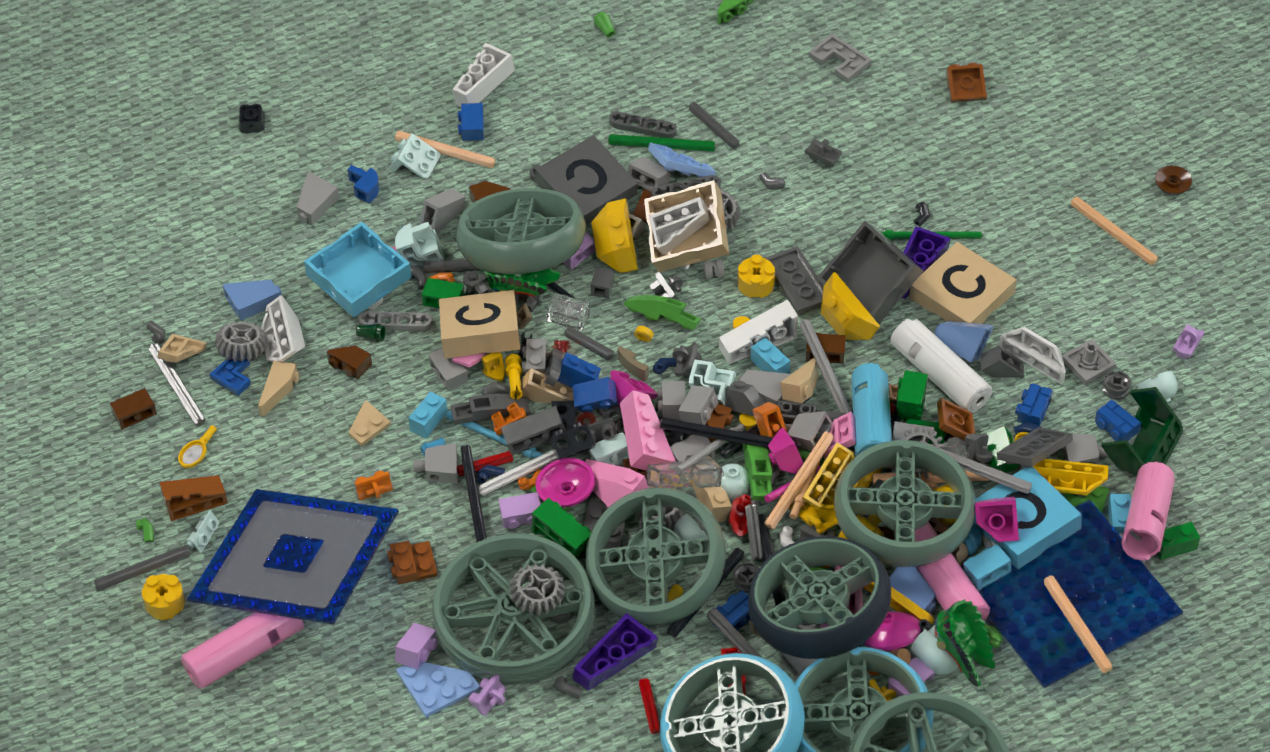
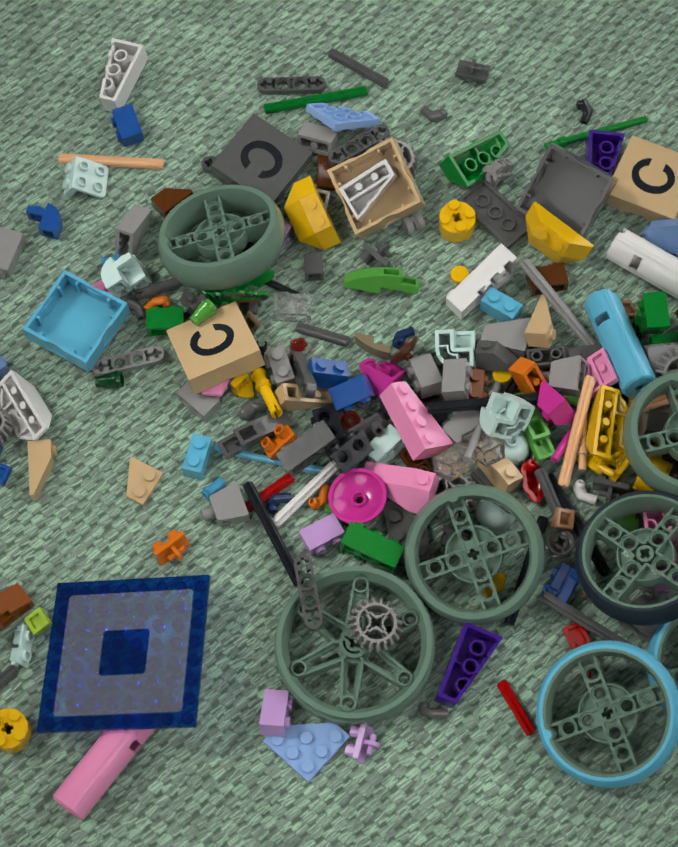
camera: 15 degrees left, 15 degrees up
(225, 513) = (38, 621): none -> lime tile
(350, 360) = (100, 417): reddish brown slope -> none
(411, 561) = (237, 619): dark orange plate -> none
(479, 289) = (204, 311): none -> bright green cone
(487, 546) = (308, 592): none -> dark grey beam
(644, 333) = (371, 310): yellow tile -> none
(659, 372) = (405, 352): none -> reddish brown dish
(685, 358) = (422, 328): dark grey hips -> none
(732, 445) = (505, 415): none -> light aqua brick
(757, 553) = (563, 519): none -> medium nougat slope
(794, 228) = (467, 164): none -> green wedge
(814, 242) = (498, 171): none -> light grey hips

